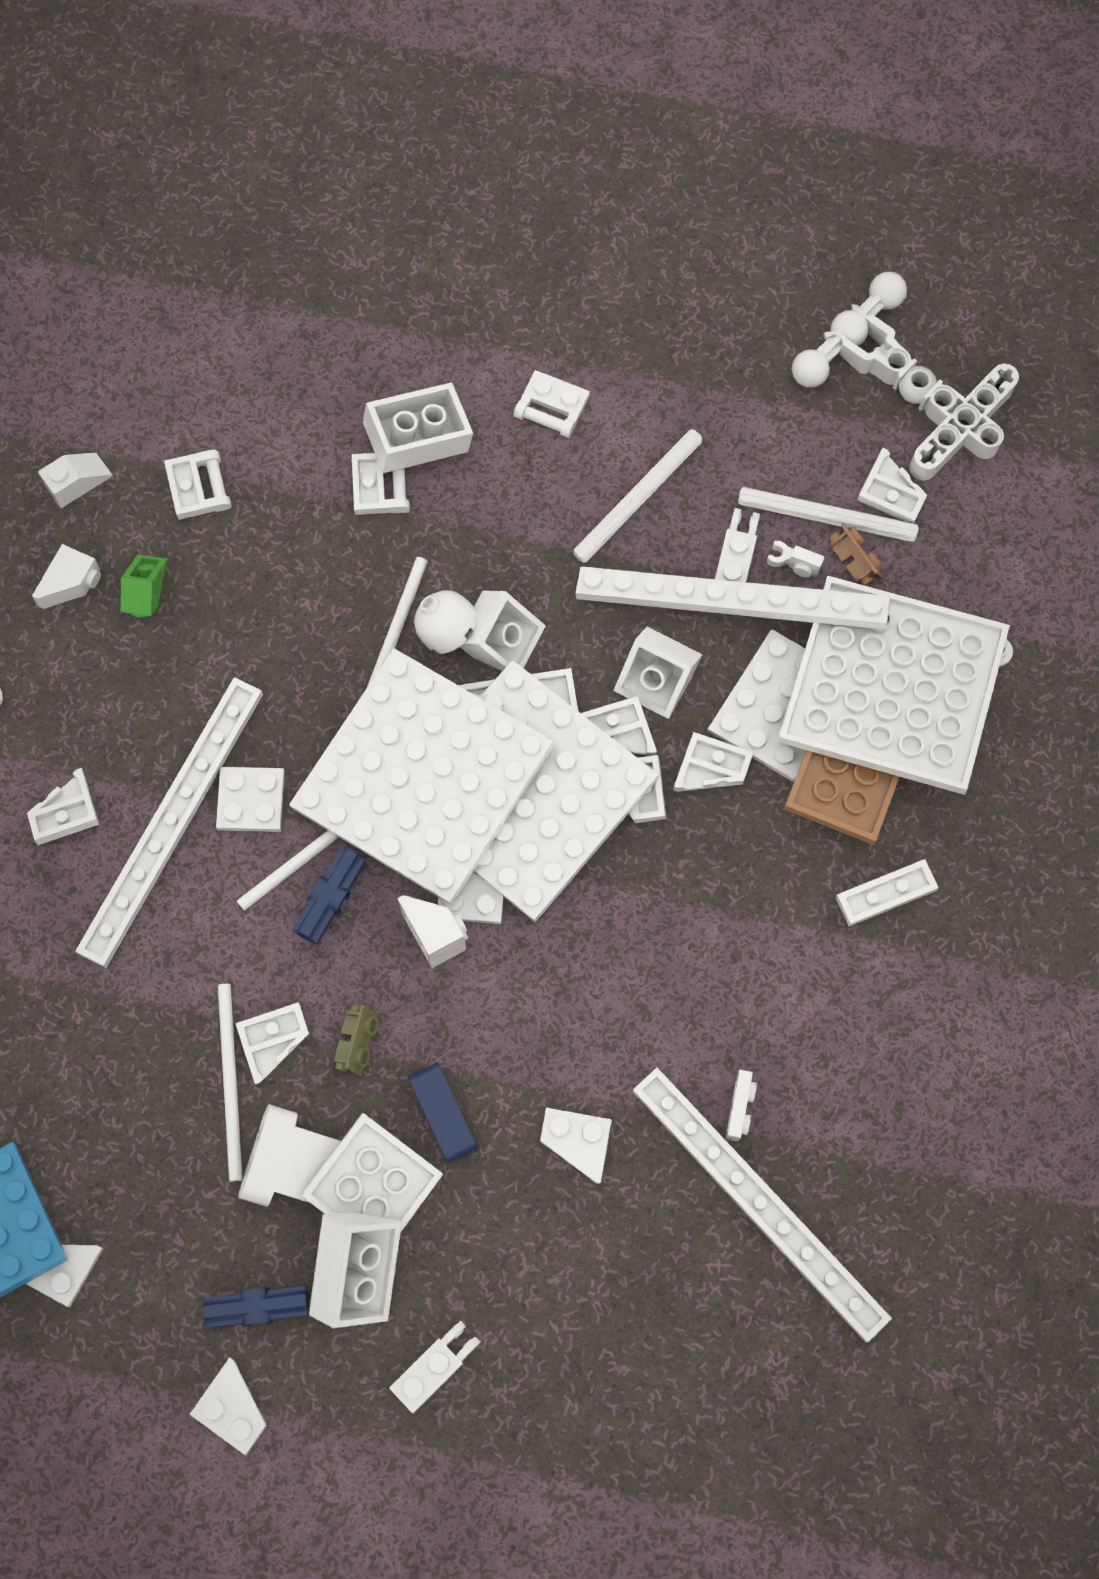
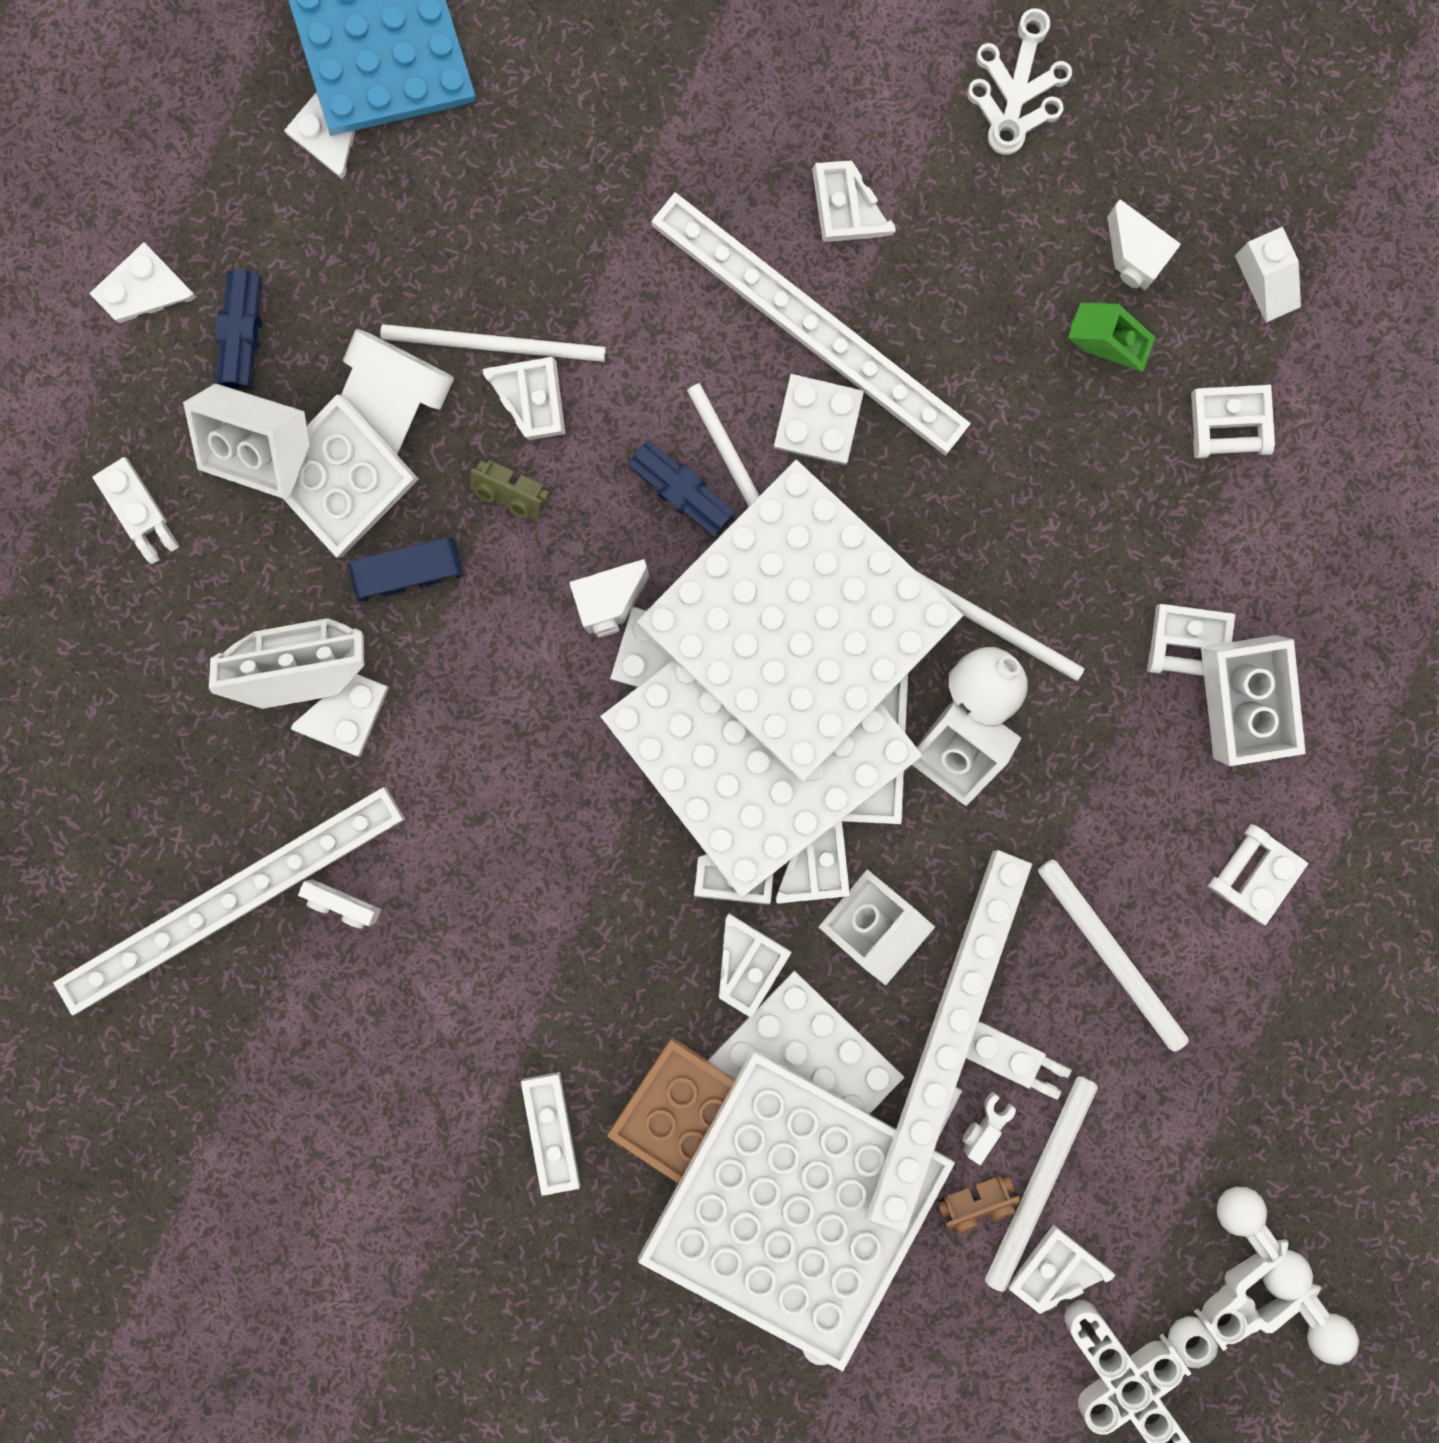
camera: 105 degrees right, 15 degrees up
(542, 1189) = (288, 664): none -> white wedge

